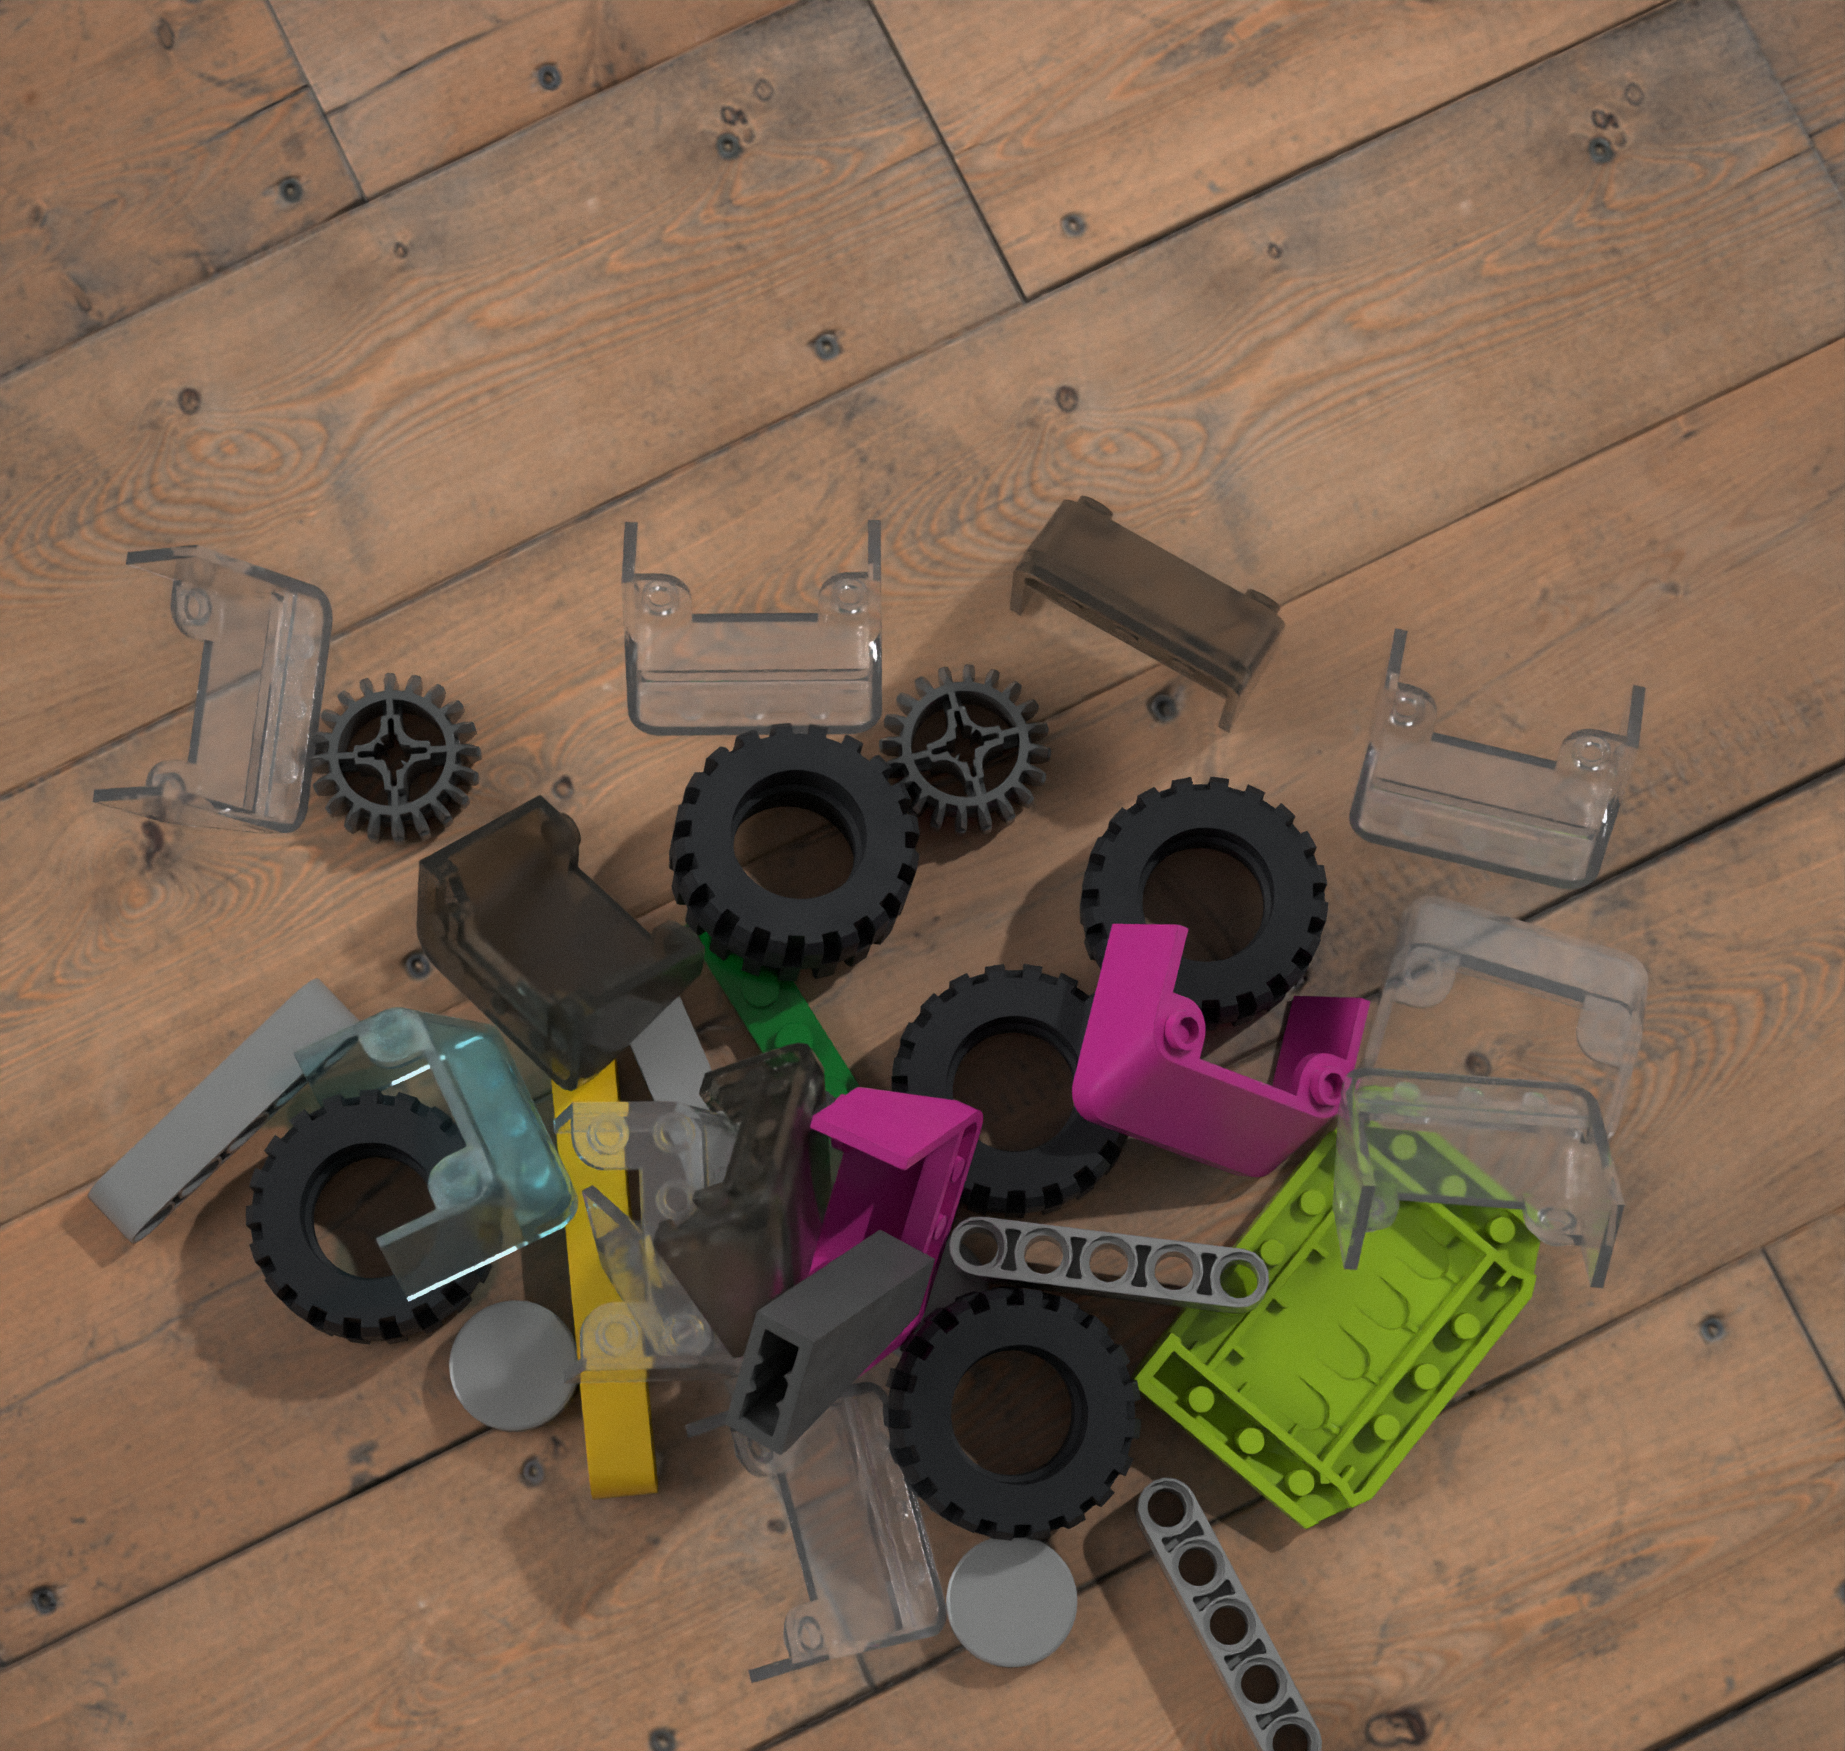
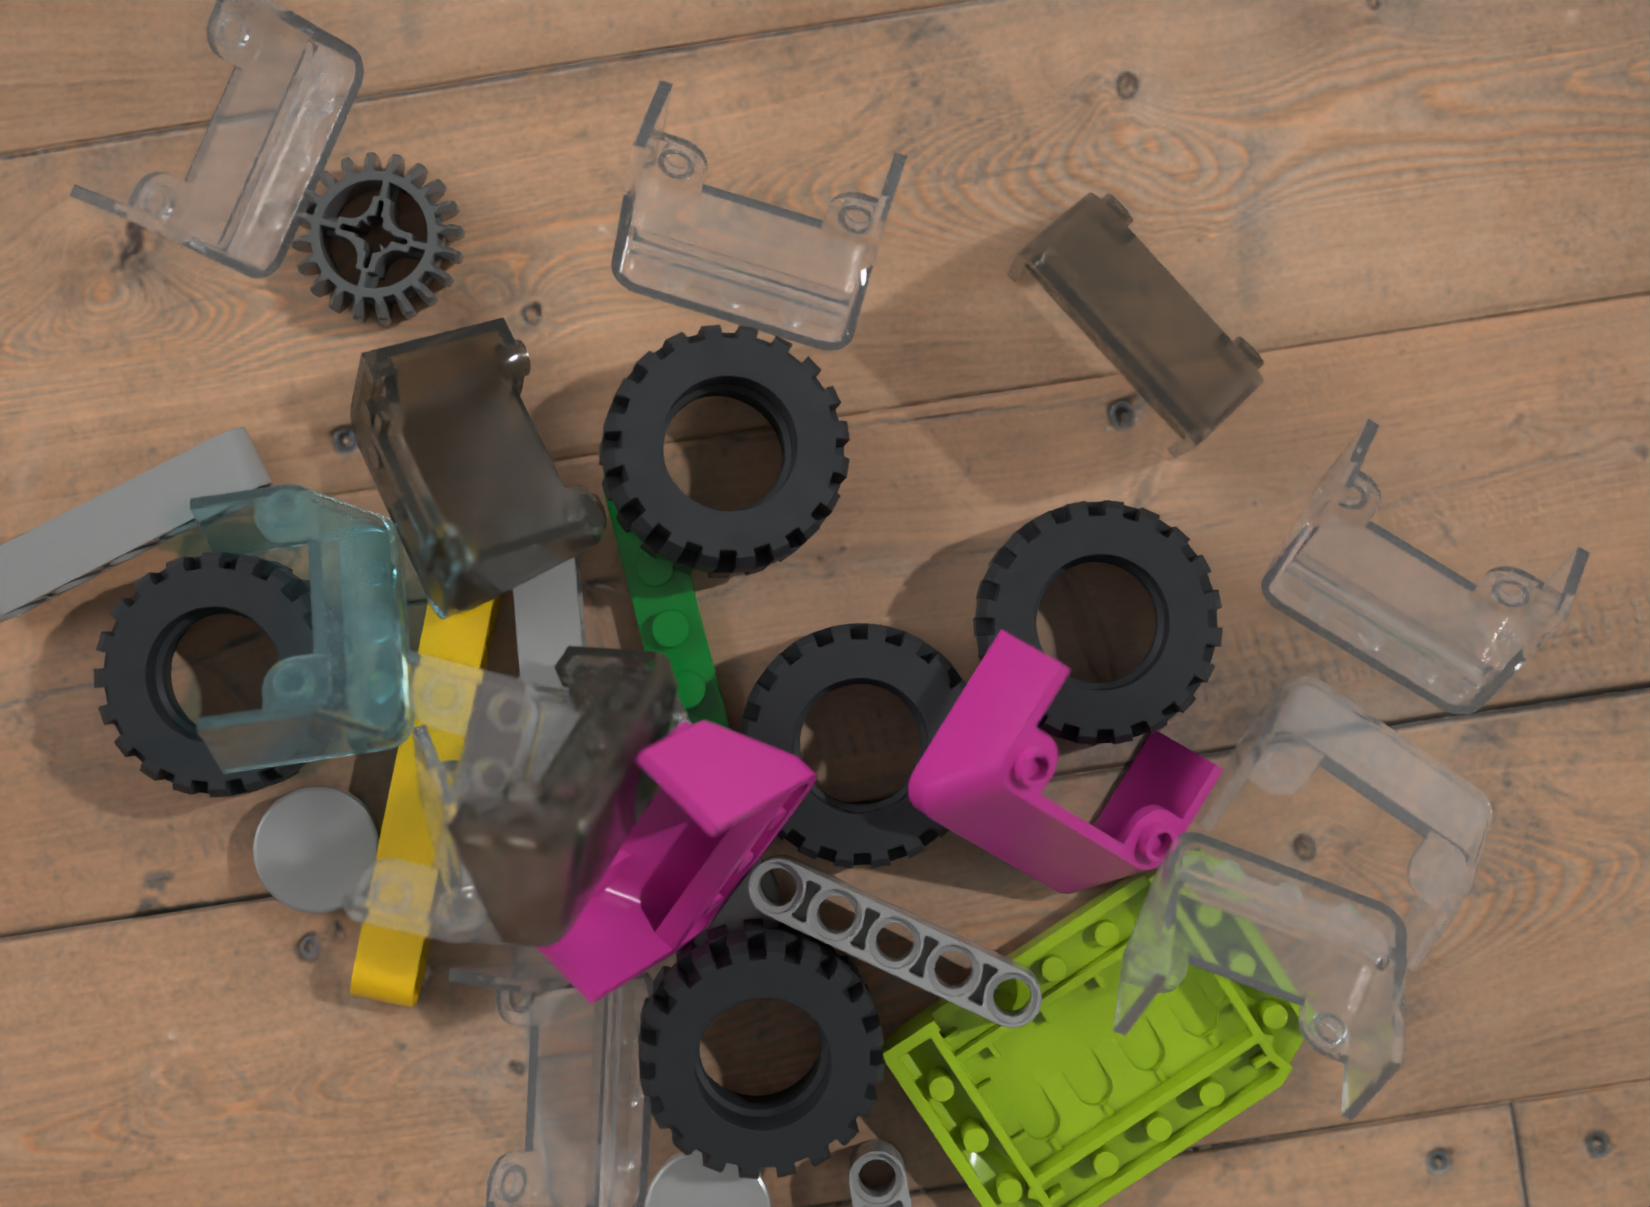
camera: 15 degrees right, 10 degrees up
(824, 1336) = (594, 953): dark grey slope -> none
(990, 739) = (921, 346): dark grey gear -> none

